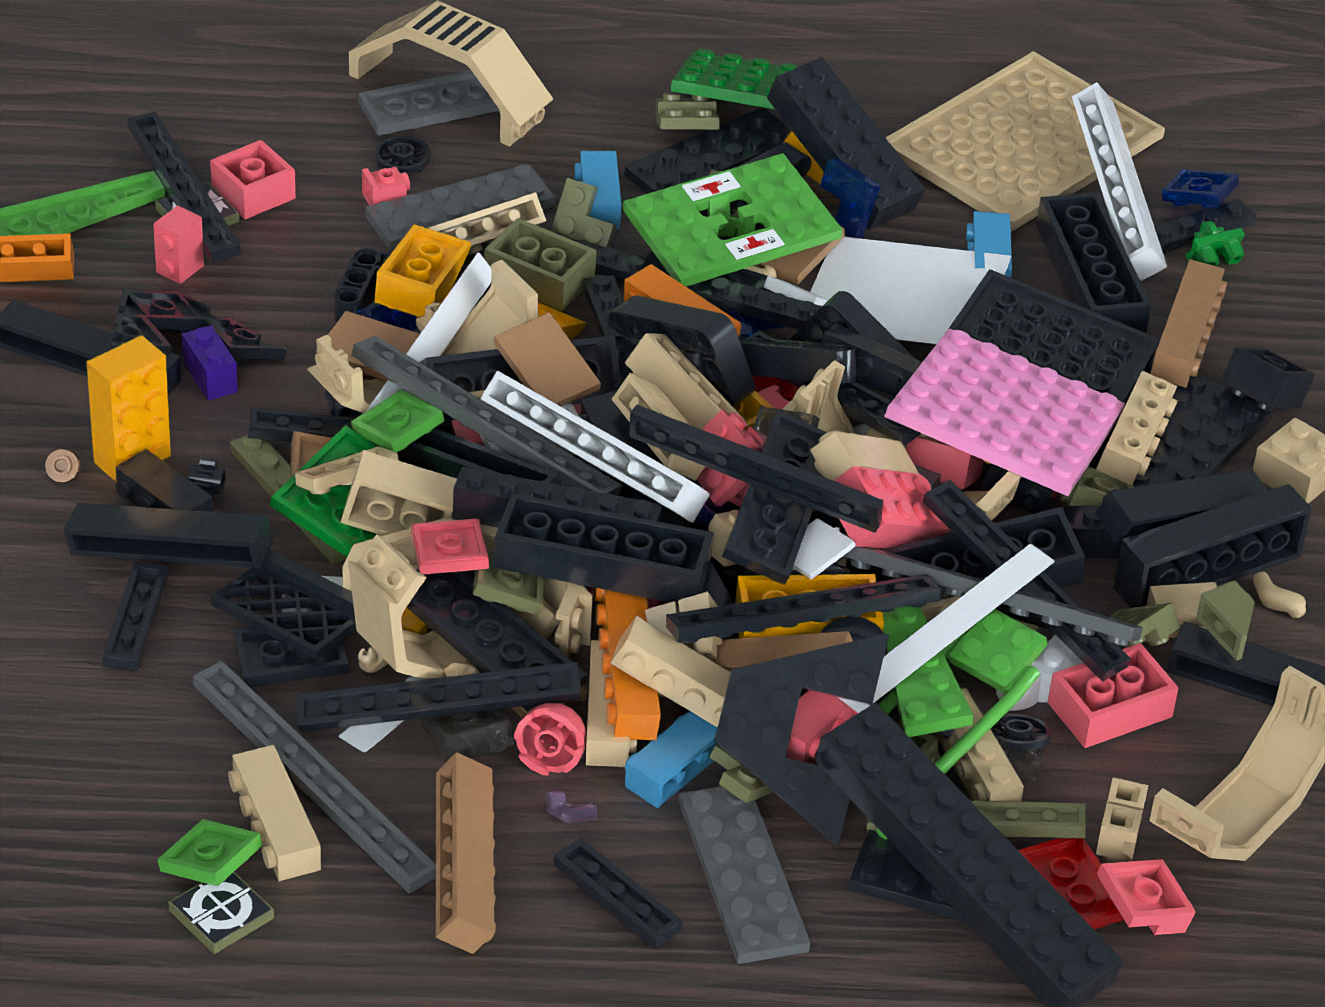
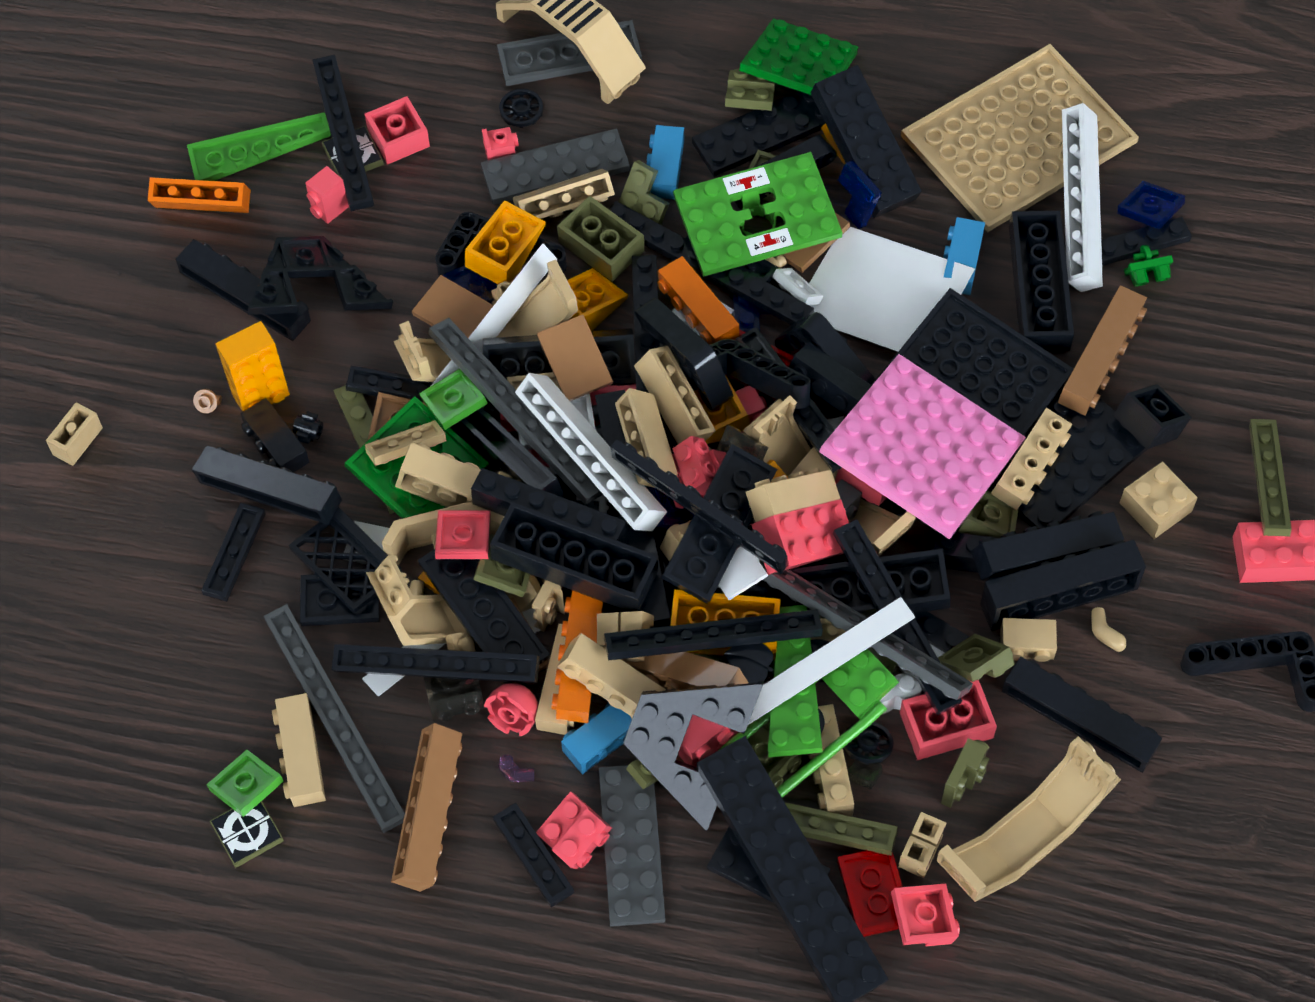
camera: 15 degrees right, 20 degrees up
(209, 362) = (331, 312): dark purple brick -> none
(668, 859) = (574, 831): none -> coral plate
(1154, 740) = (967, 770): none -> olive plate
(1227, 616) = (1054, 660): olive slope -> none

